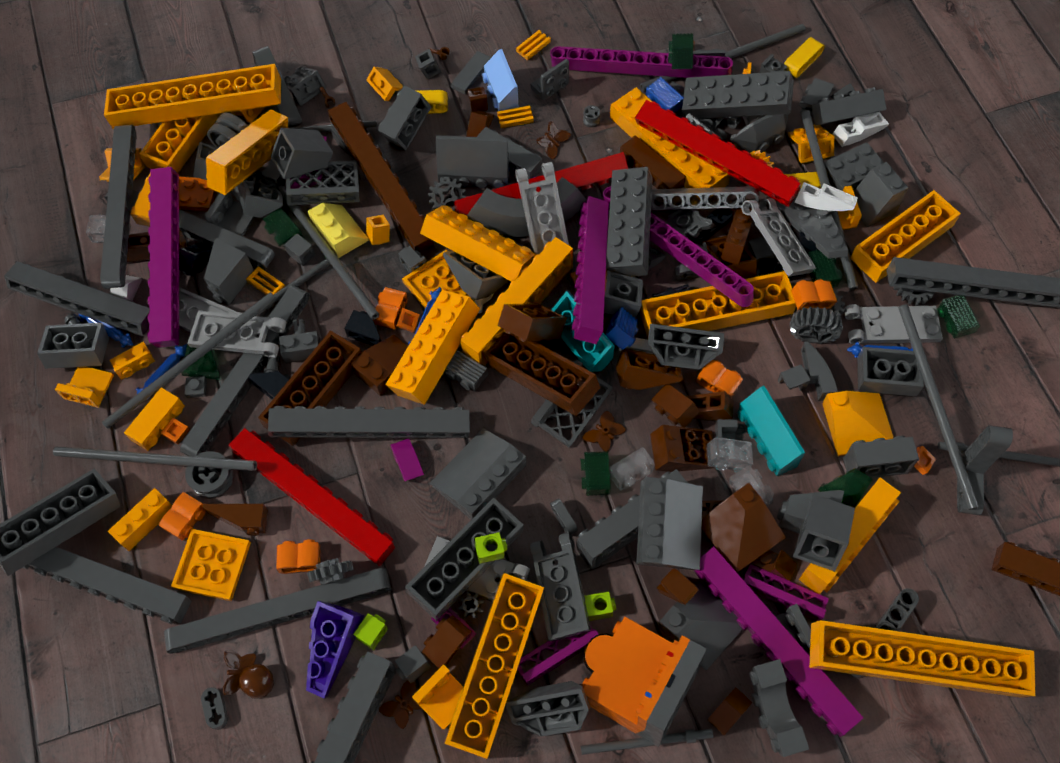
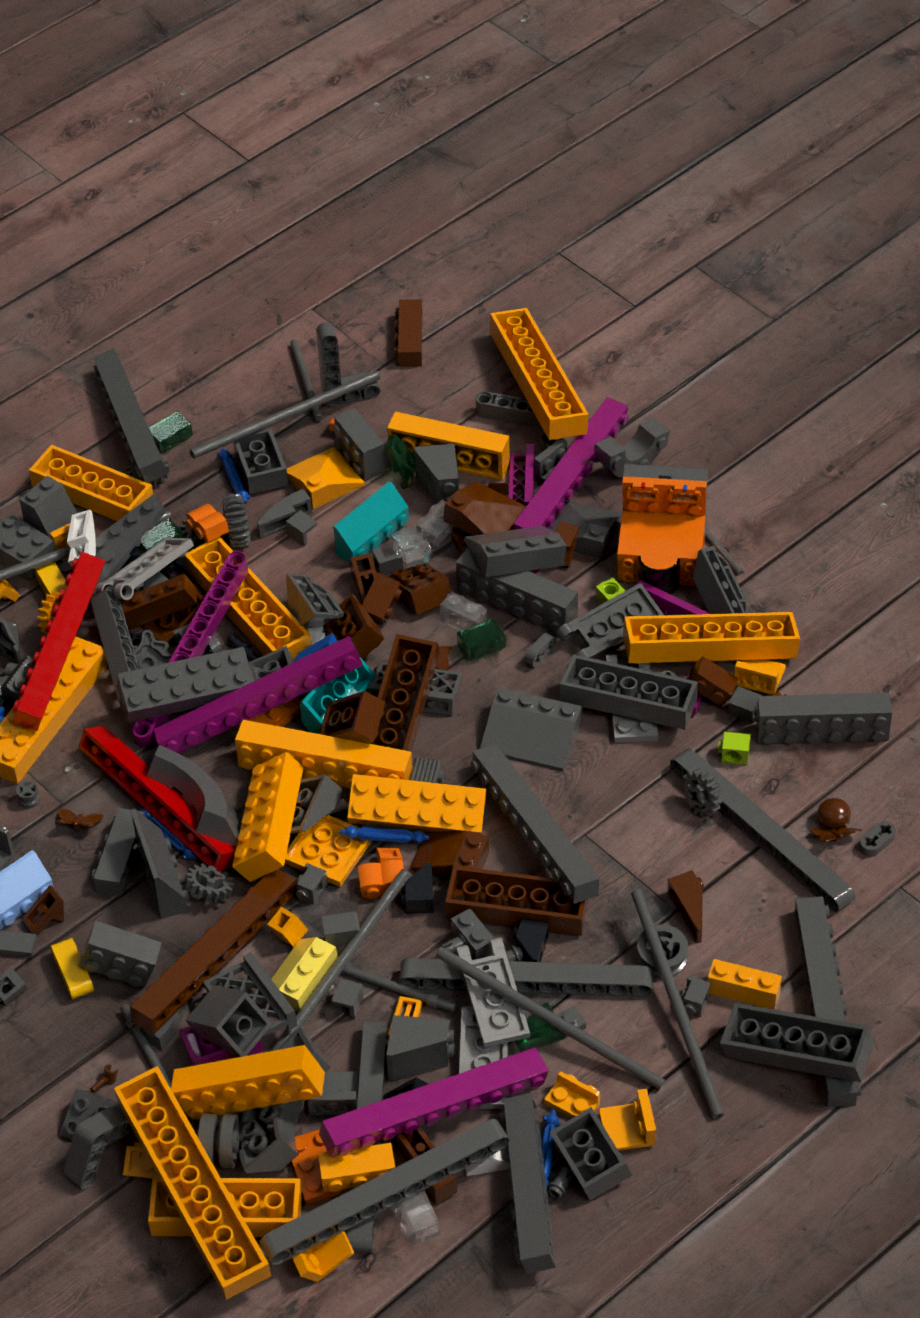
camera: 115 degrees left, 15 degrees down
(154, 418) = (632, 1033): light orange brick -> none
(156, 478) = (695, 995): none -> dark grey brick
(171, 361) = (577, 1062): blue wheel -> none
(175, 431) = (632, 1009): orange plate -> none
(182, 516) = (722, 948): orange brick -> none
(211, 564) = (751, 905): light orange plate -> none
(281, 227) = (329, 1027): clear green brick -> none
(297, 557) = (701, 835): orange brick -> none
(313, 497) = (633, 855): red brick -> none
(329, 644) = (765, 769): dark purple wedge -> none
(352, 255) = (340, 928): none -> dark grey slope
(383, 82) = (57, 1024): light orange panel -> none
(406, 459) = (552, 788): magenta slope -> none
(478, 122) = (83, 898): reddish brown slope -> none
(485, 555) = (613, 660): lime brick -> none
(515, 114) = (48, 859): light orange tile -> none
(542, 208) = (200, 765): light grey hinge -> none
(663, 173) = (82, 713): reddish brown brick -> none
(718, 378) = (332, 577): orange brick -> none
(824, 532) = (465, 440): dark grey slope -> none
(889, 326) = (196, 476): light grey hinge -> none

